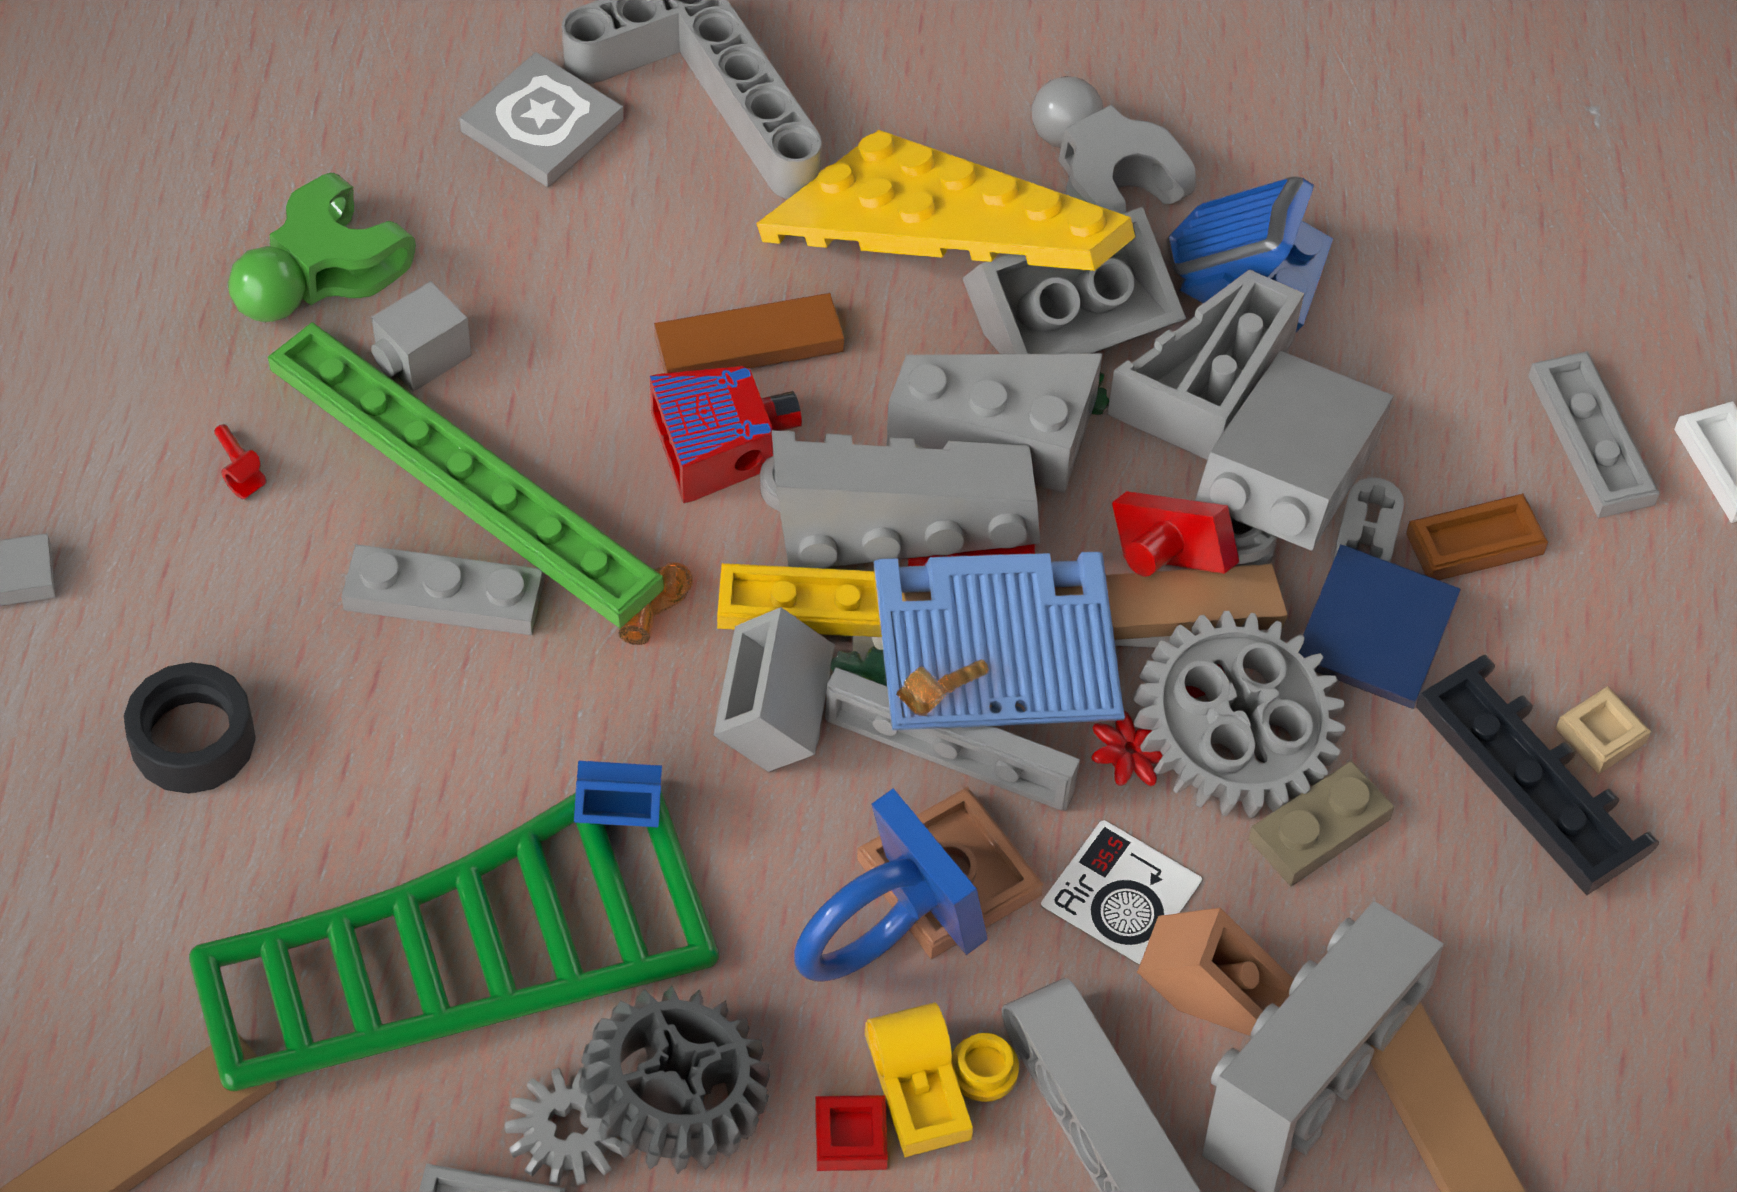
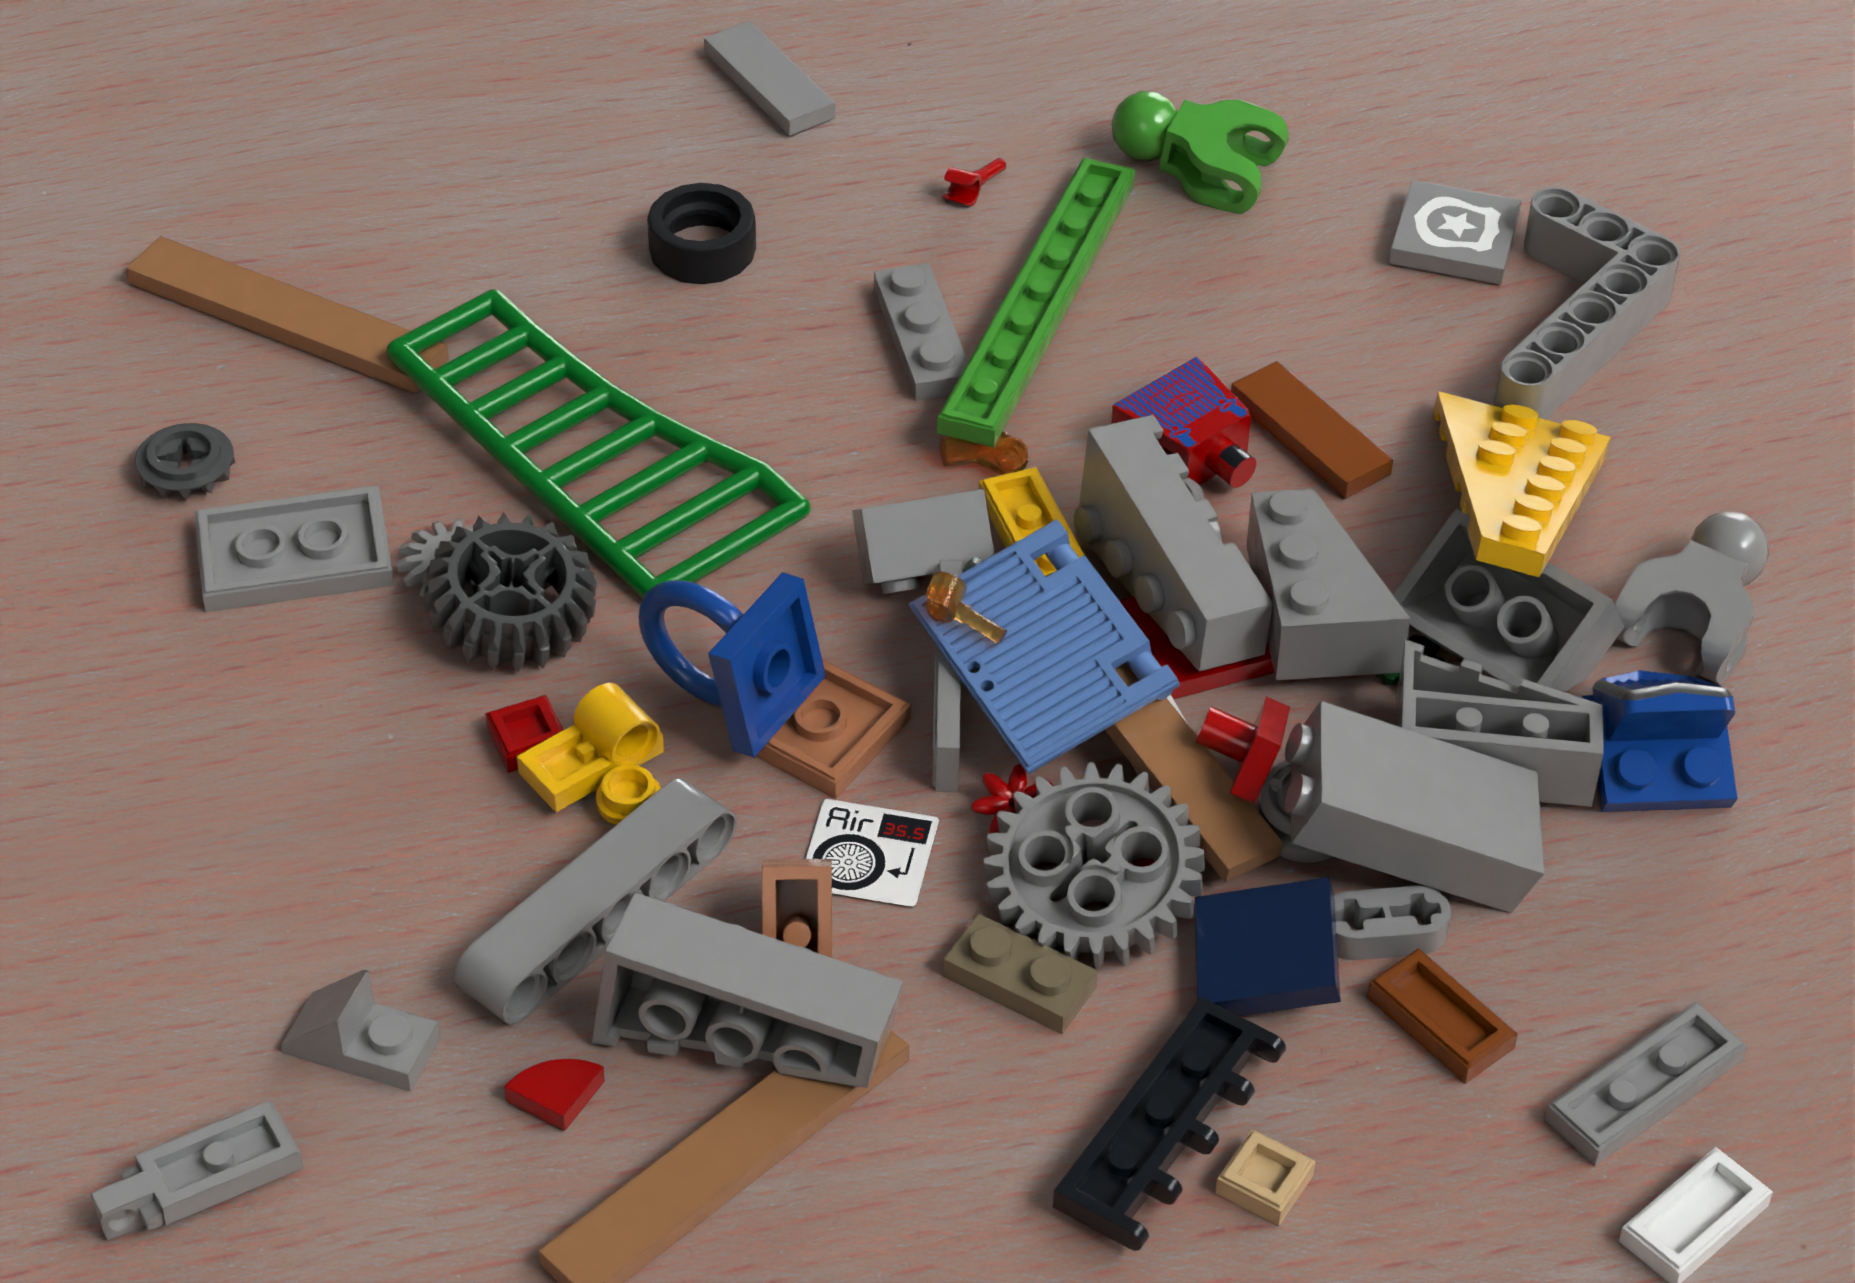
camera: 70 degrees right, 10 degrees down
(420, 336) = (1158, 228): light grey brick -> none
(618, 794) = (758, 473): blue piece -> none

